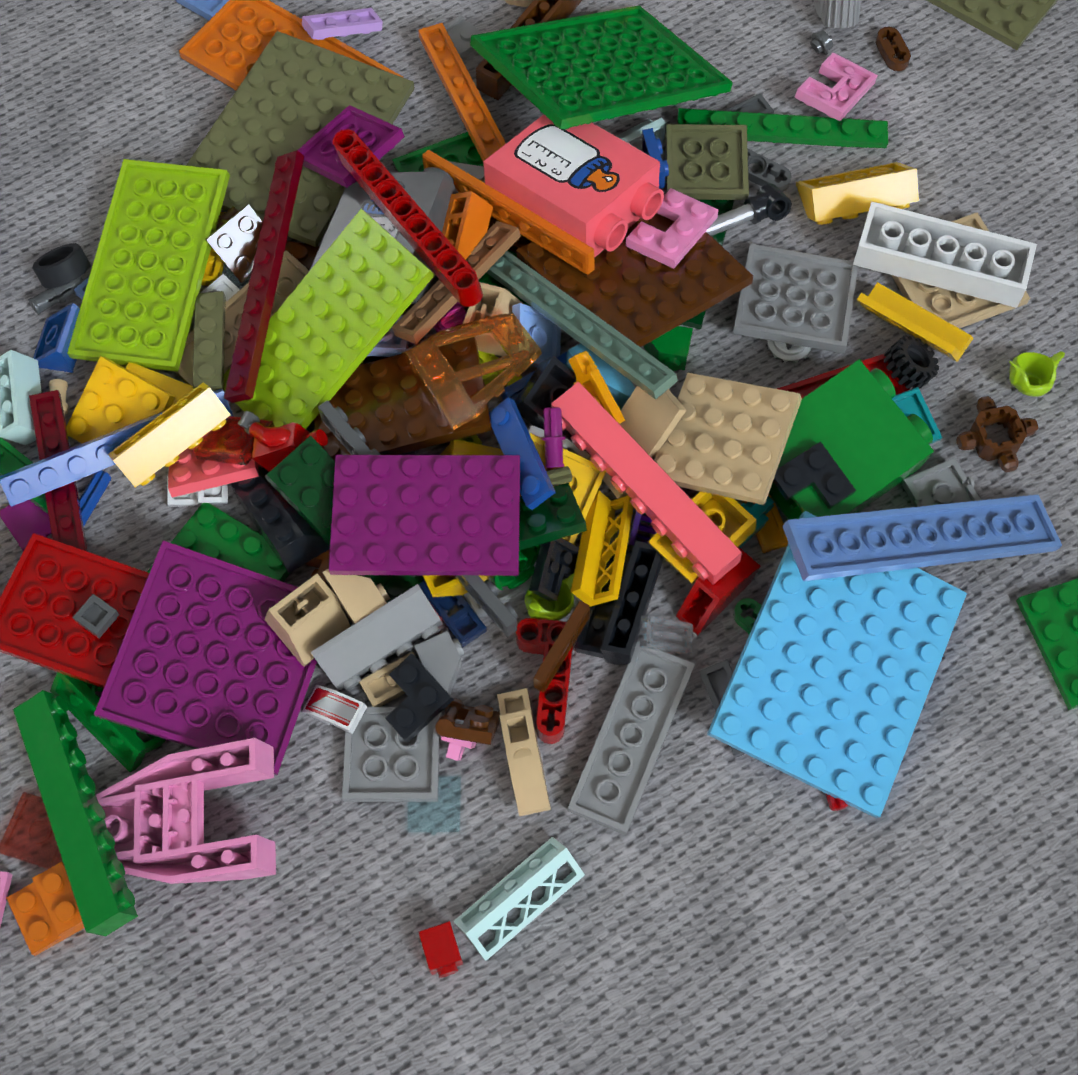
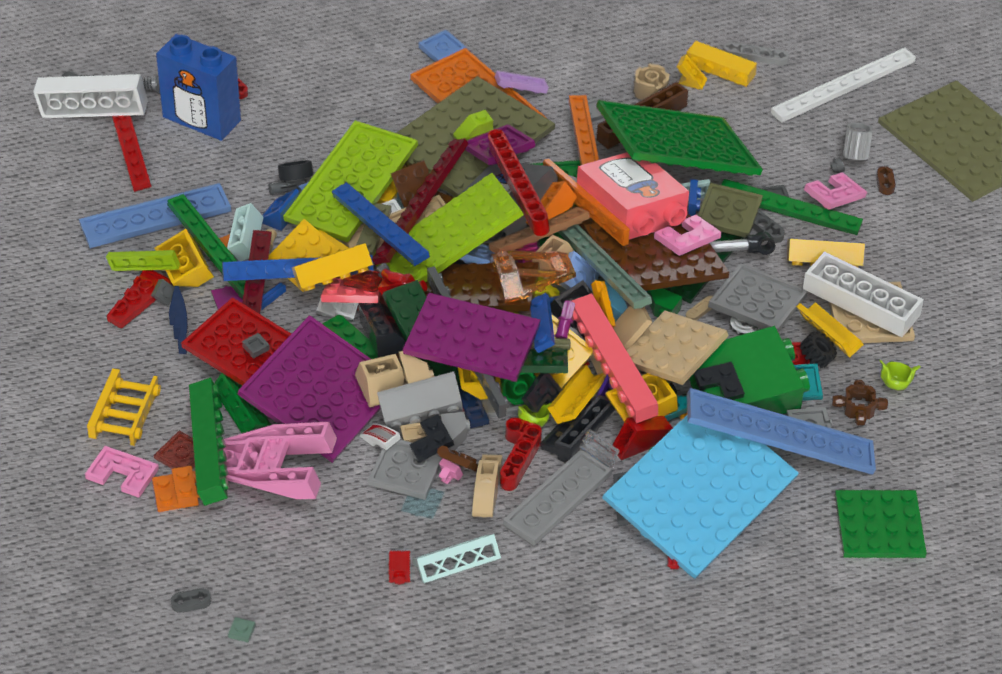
camera: 15 degrees right, 20 degrees down
(220, 337) = (381, 224): none -> blue plate
(302, 123) = (474, 125): none -> lime slope
(561, 647) = (530, 432): reddish brown tile -> none
(720, 334) = (699, 309): none -> tan piece

